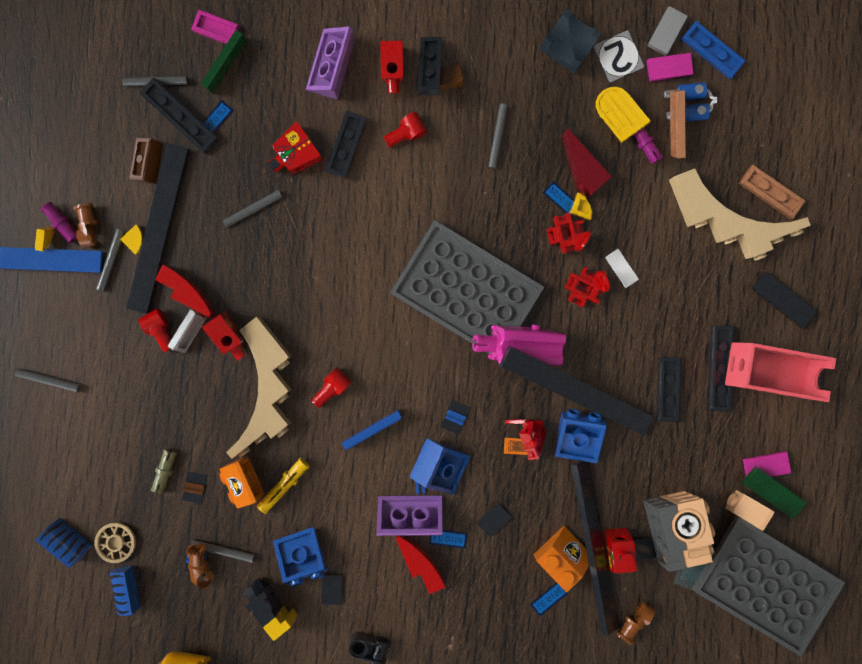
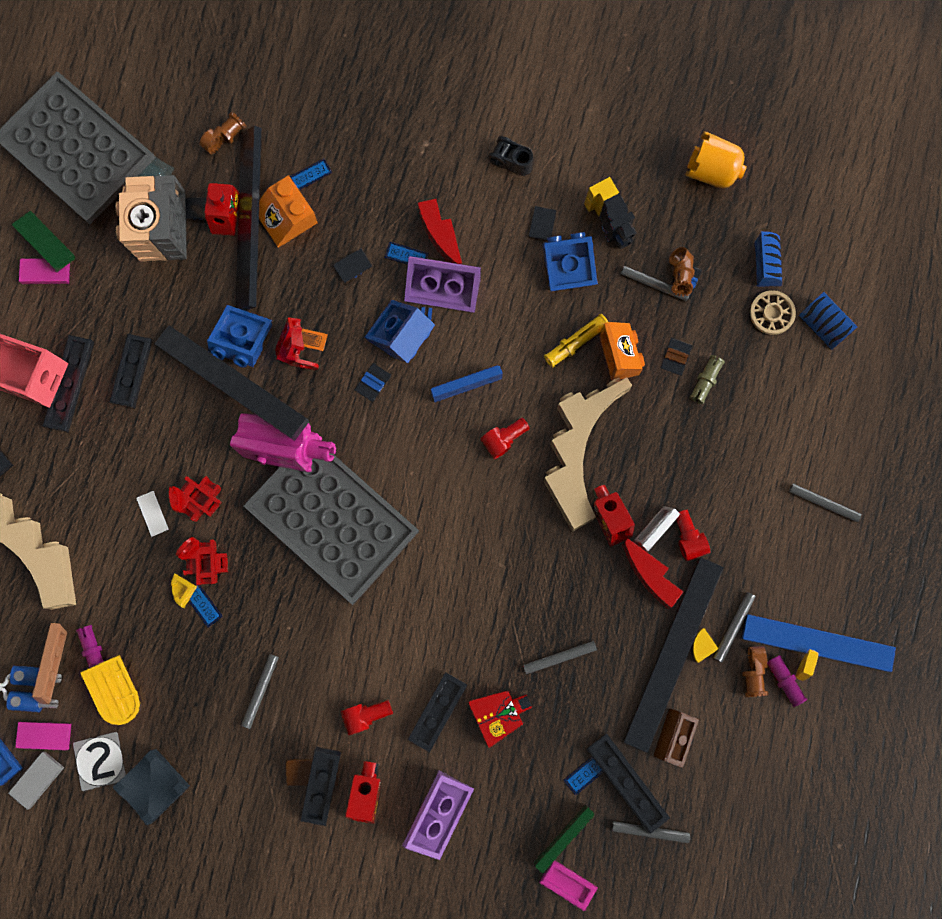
camera: 165 degrees left, 10 degrees down
(586, 170) = (168, 633): dark red slope -> none
(749, 510) = (74, 226): light nougat slope -> none

